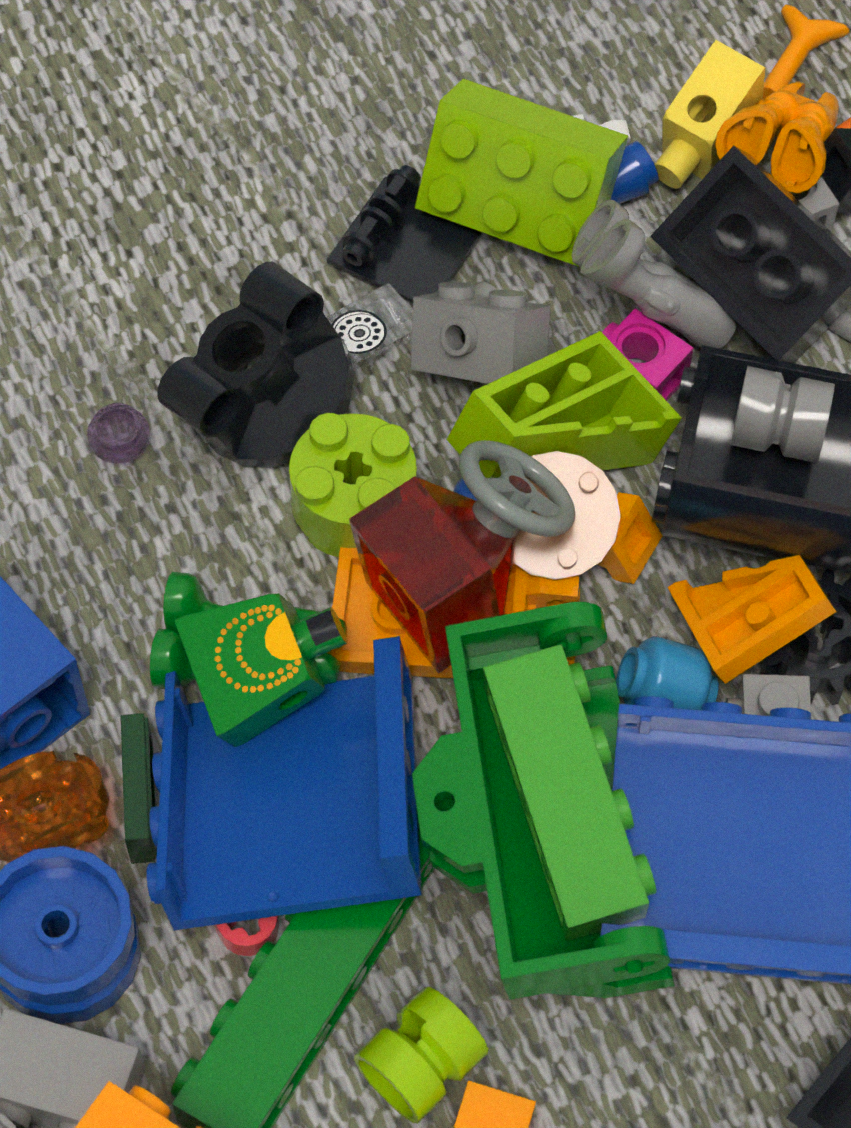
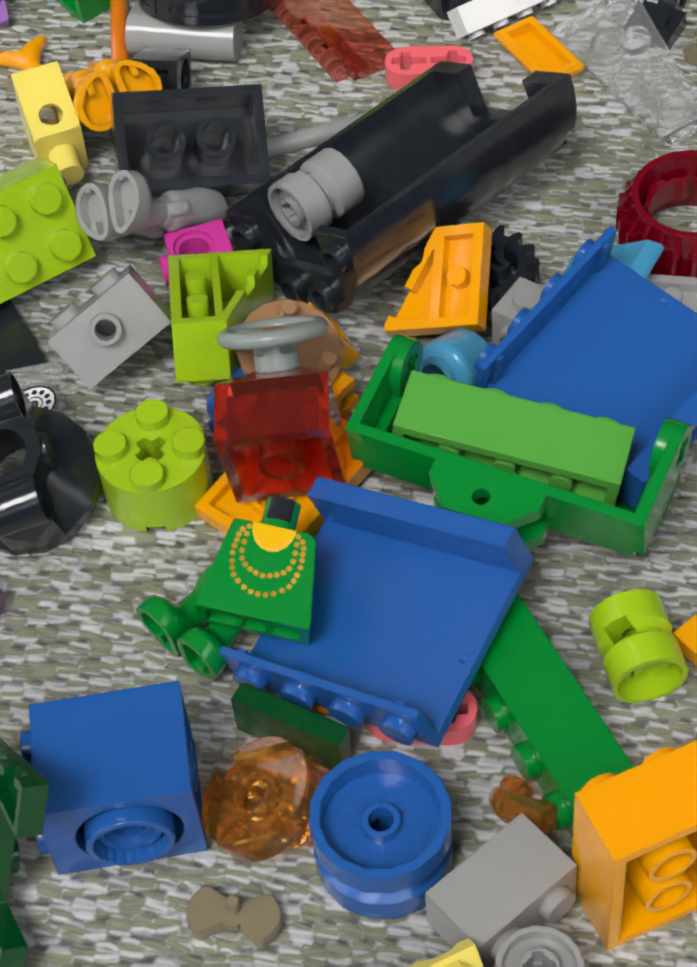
camera: 50 degrees left, 10 degrees down
(166, 1038) = (515, 797): none -> clear orange arm

